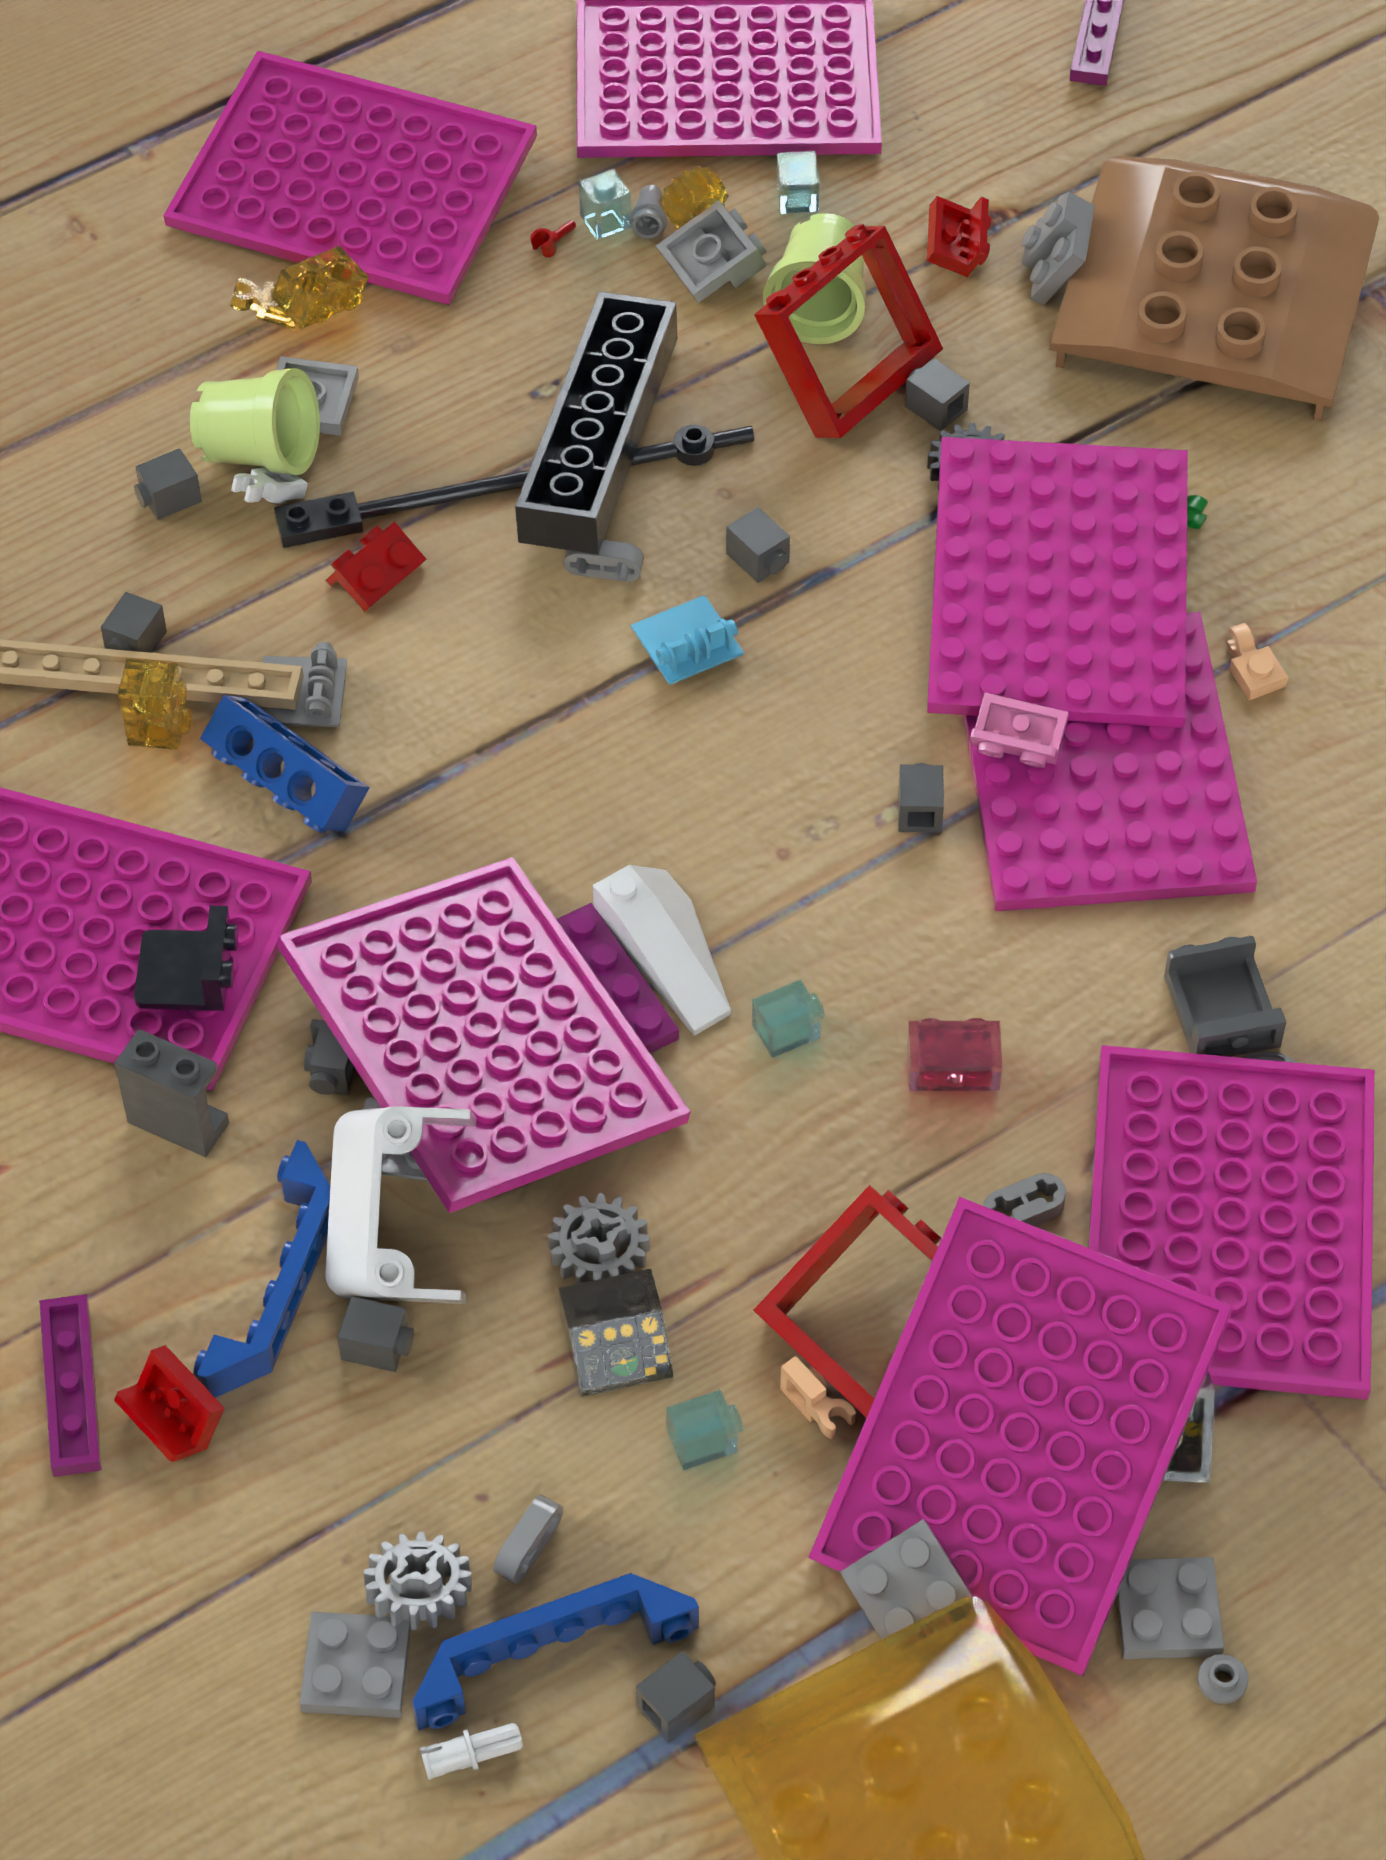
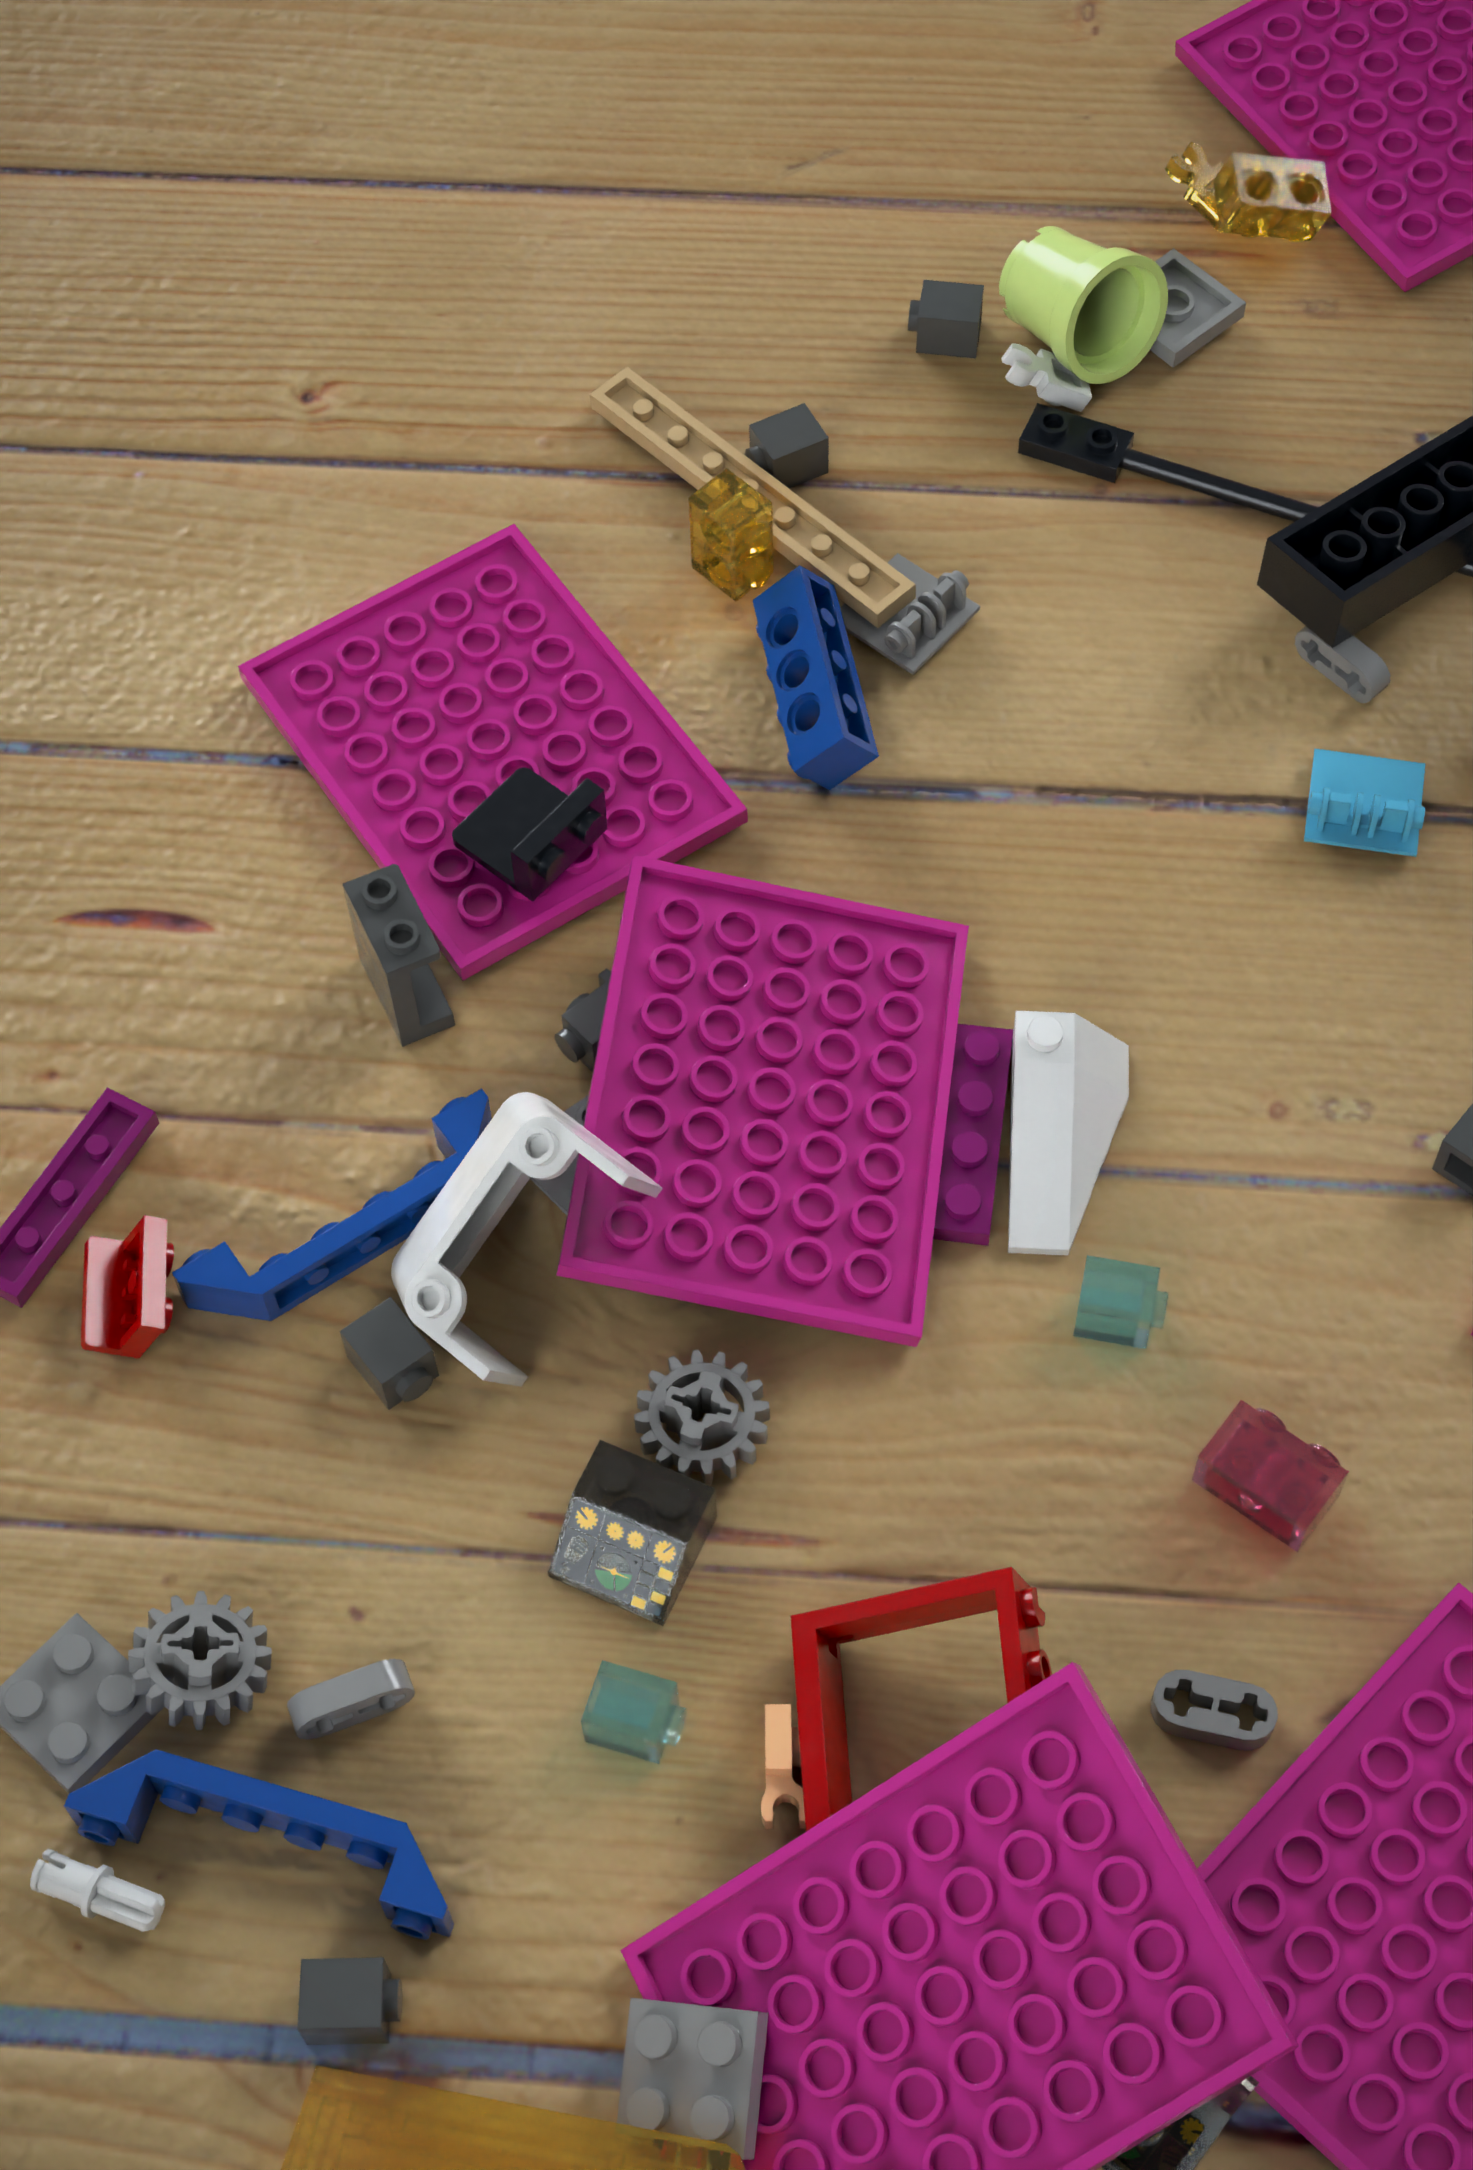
camera: 40 degrees right, 5 degrees up
(378, 566) = (1092, 525): red bracket -> none

